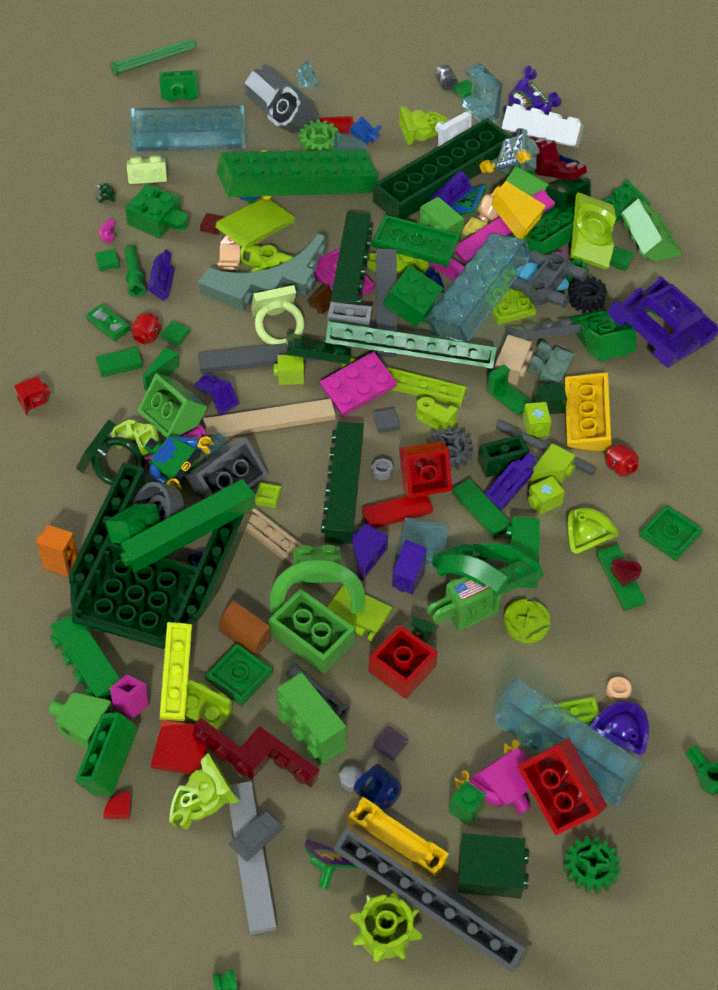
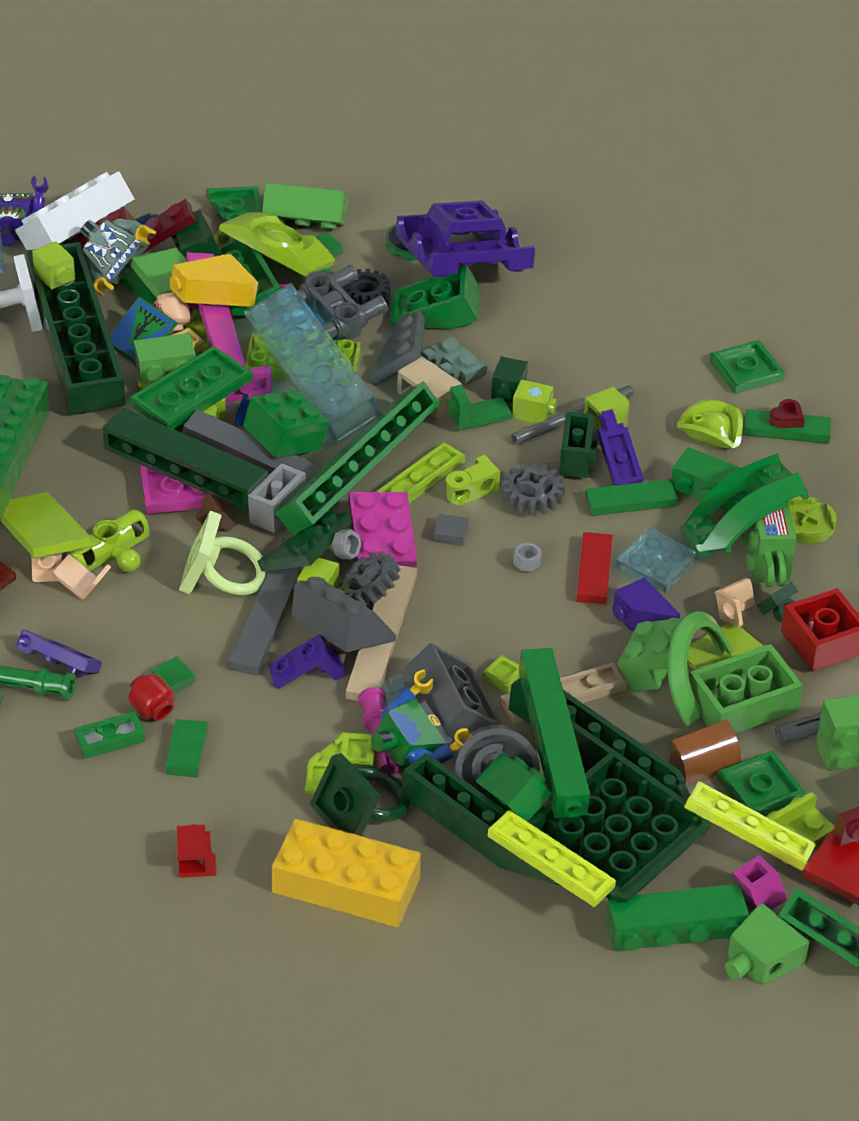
camera: 65 degrees left, 10 degrees down
(45, 472) = (346, 872): none -> yellow brick
(57, 550) = (499, 888): orange brick -> none
(82, 565) = (551, 858): none -> neon yellow tile
(164, 364) = (231, 704): green slope -> none
(171, 407) = (320, 709): bright green slope -> none
(239, 288) = (149, 579): sand green arch -> none
(254, 388) = (338, 616): none -> dark grey slope
(302, 391) = (370, 578): none -> dark grey gear
(323, 367) = (346, 544): none -> light grey tile
(344, 483) = (531, 594): dark green brick -> none
(406, 598) = (733, 600): none -> light nougat bracket
(409, 567) = (697, 576): dark purple slope -> none
(425, 469) = (564, 510): red brick -> none
(453, 189) = (121, 339): dark purple hinge -> none
(473, 131) = (53, 265): none -> lime brick
(545, 495) = (648, 436): lime brick -> none
(588, 412) = (549, 356): yellow slope -> none
(622, 460) = (633, 359): red head -> none

